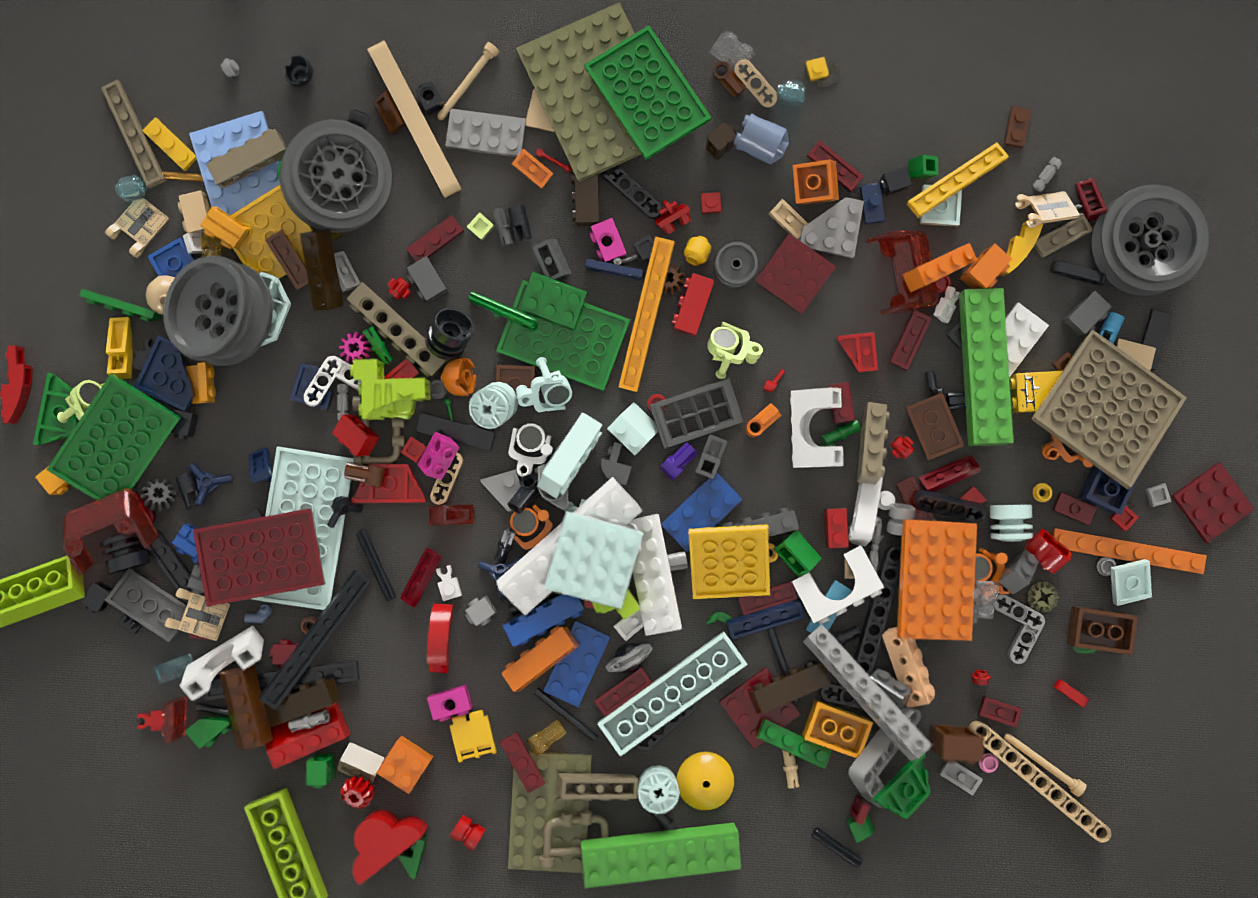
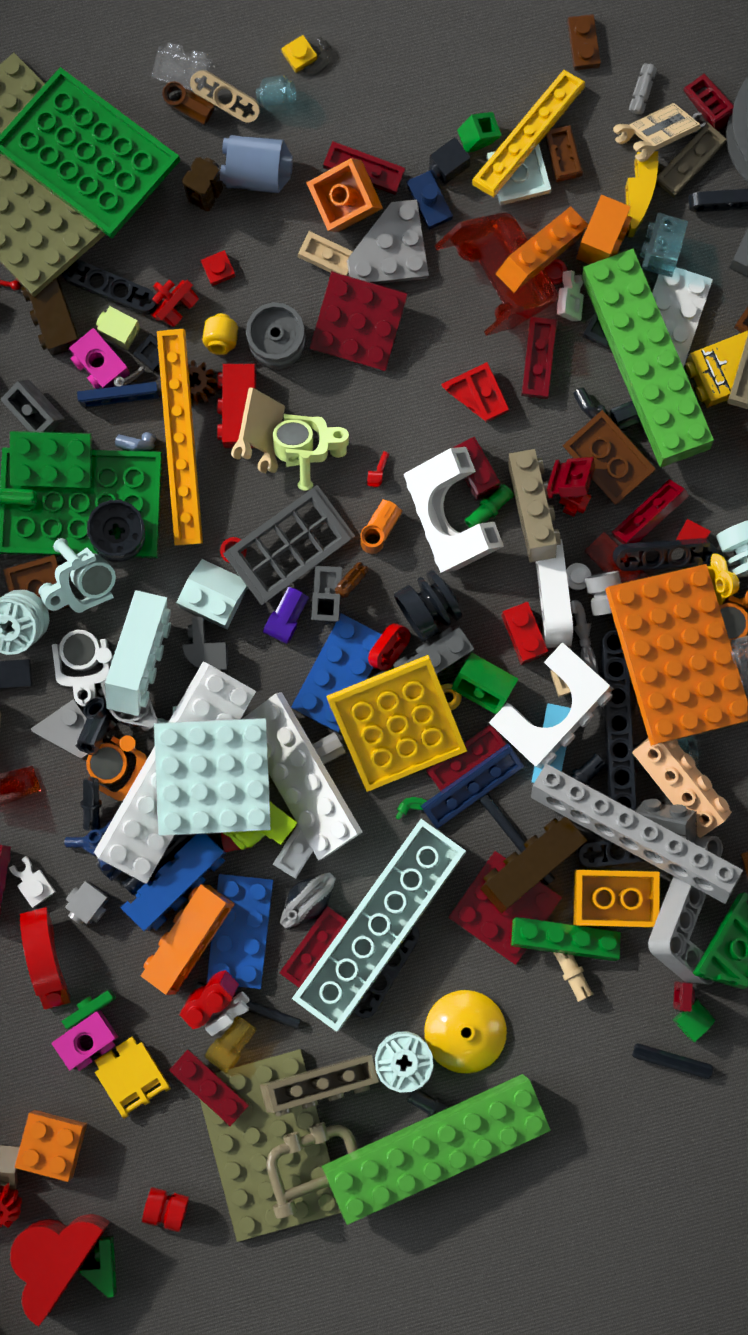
camera: 15 degrees left, 5 degrees down
(459, 681) = (87, 1008): none -> green plate
(541, 704) = (209, 999): none -> red brick
(547, 717) = (223, 1020): none -> white plate
(591, 358) = (116, 515): none -> black wheel
(614, 308) = (134, 444): none -> sand blue arm
(628, 222) = (117, 327): none -> yellowish green brick
(703, 324) = (257, 429): none -> tan flag
(732, 451) = (351, 580): none -> reddish brown axle
(741, 506) = (389, 647): none -> red beam
(778, 487) = (428, 605): none -> black wheel
(905, 433) = (571, 477): none -> dark red plate
(976, 202) = (563, 153): none -> reddish brown plate
(984, 540) = (723, 581): none -> yellow plate
(1024, 291) = (664, 244): none -> clear light blue brick

